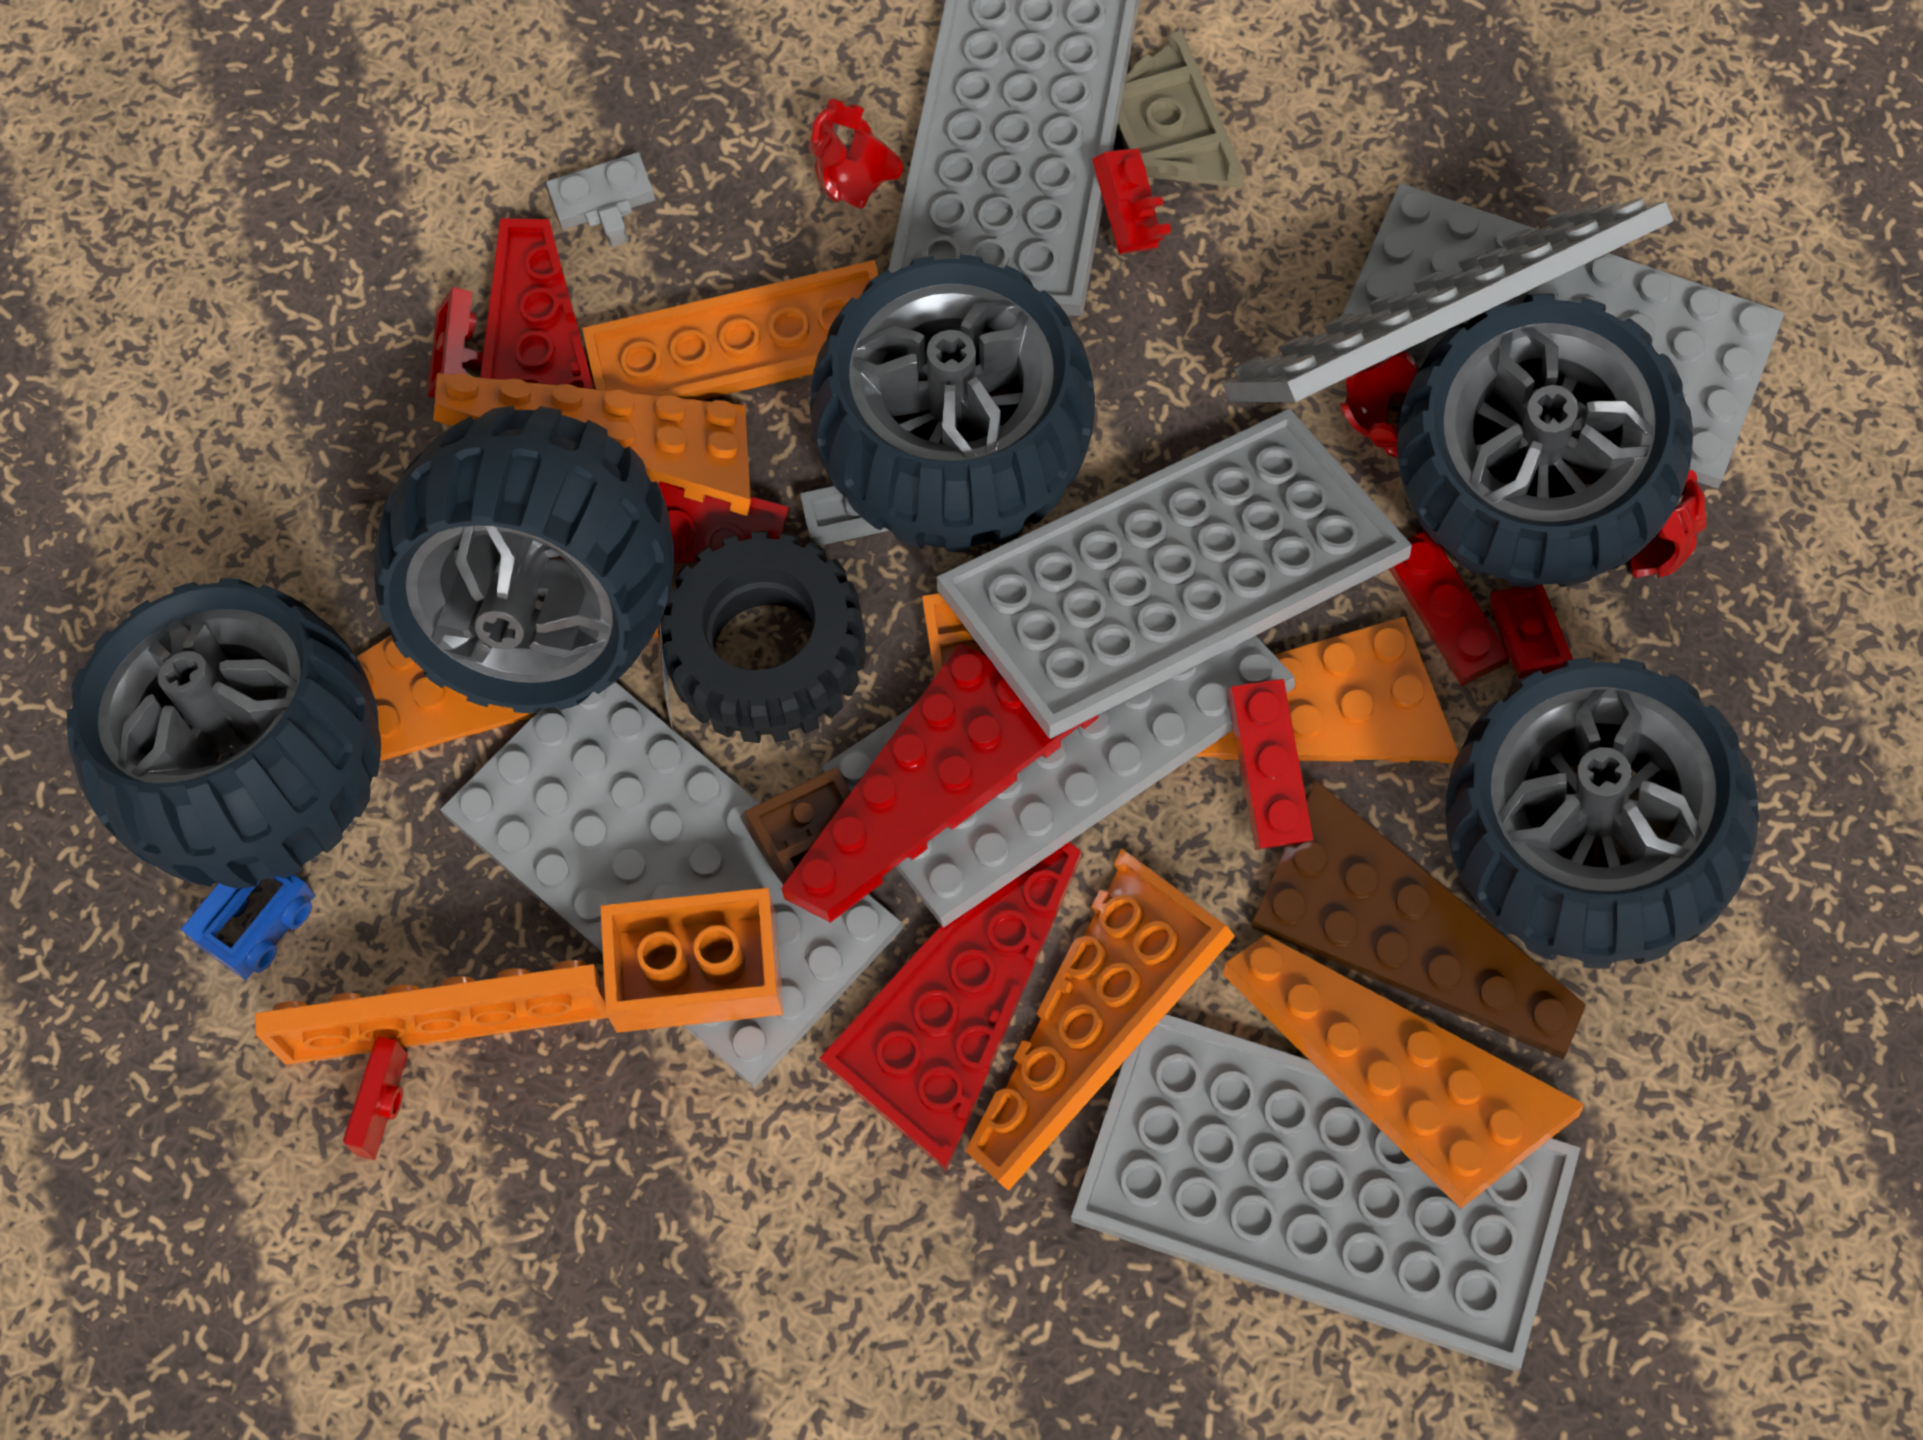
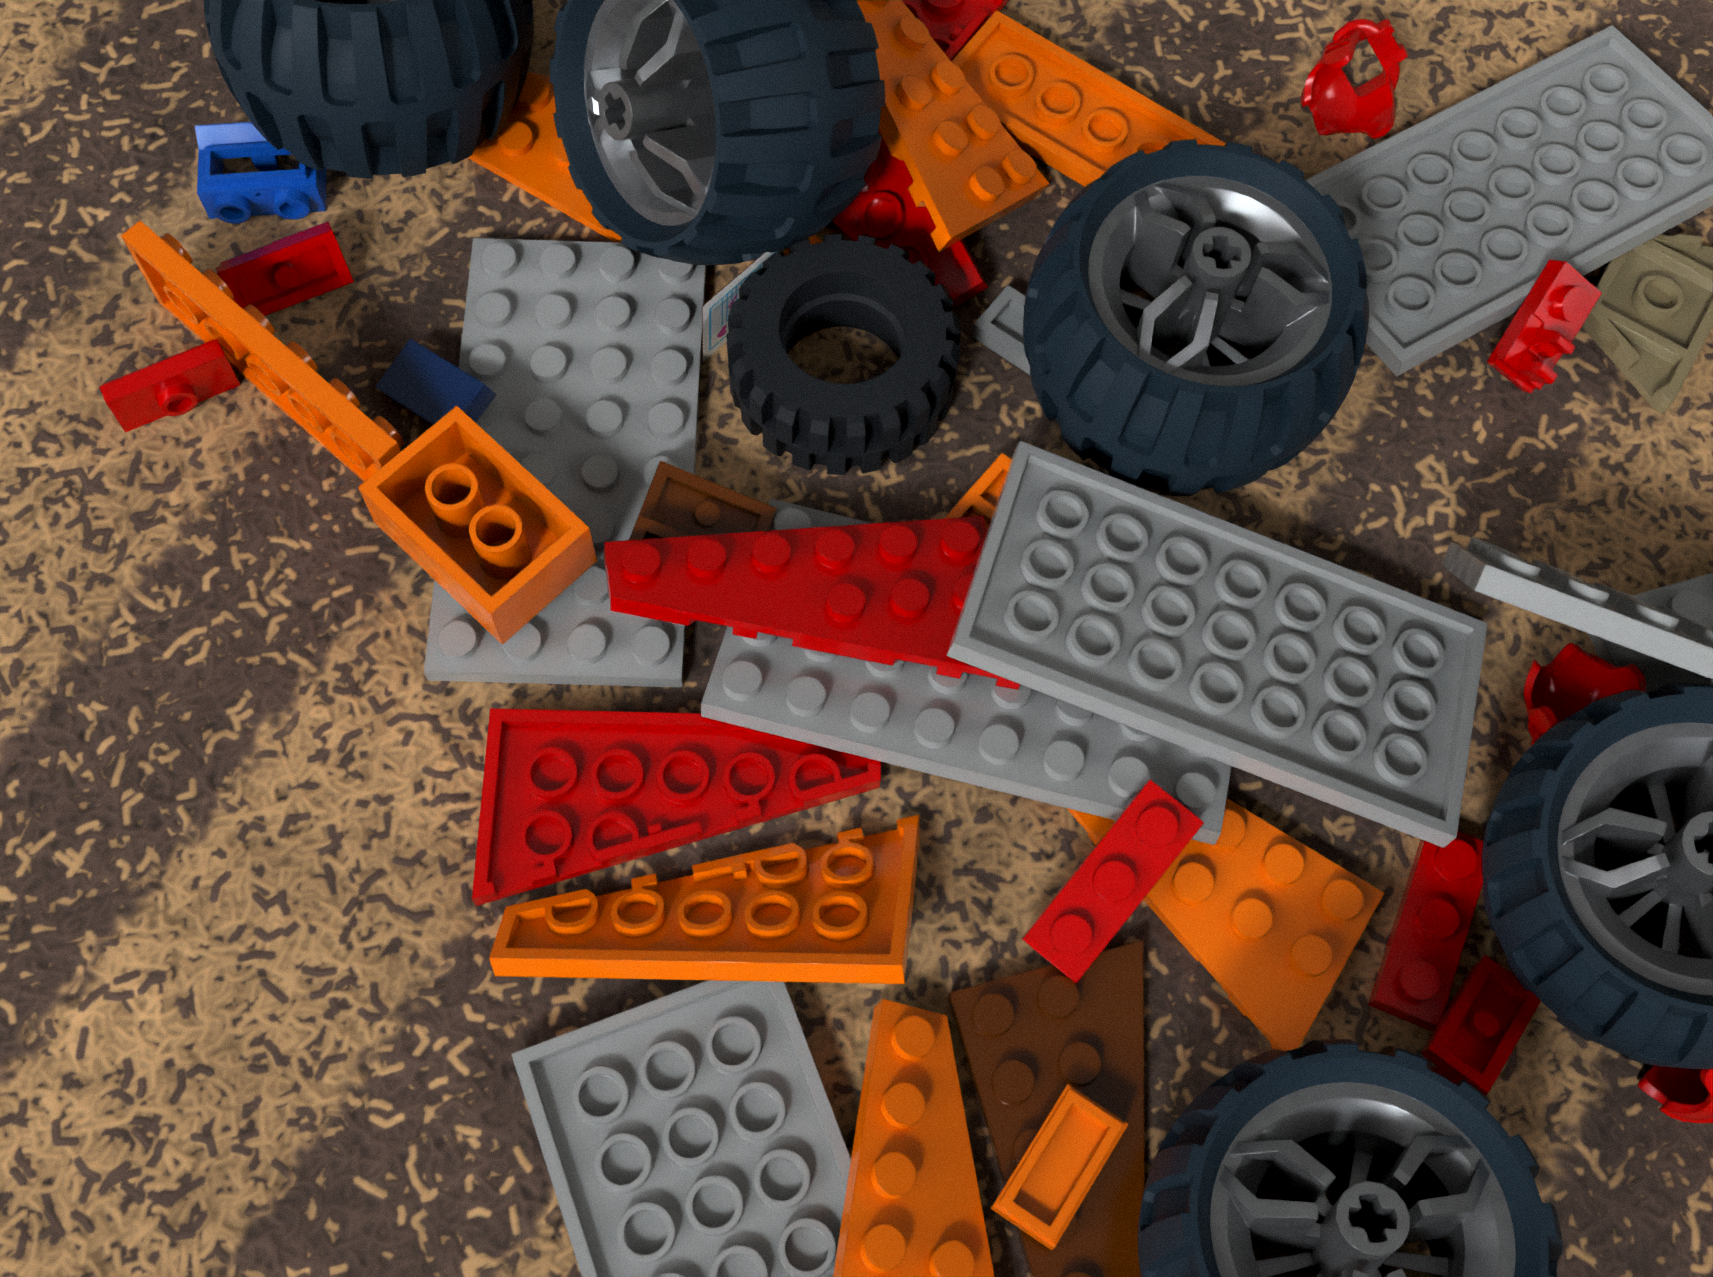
camera: 40 degrees right, 0 degrees up
(353, 950) = (287, 270): none -> red plate
(545, 921) = (432, 385): none -> dark blue tile
(1415, 940) = (1059, 1167): none -> orange tile

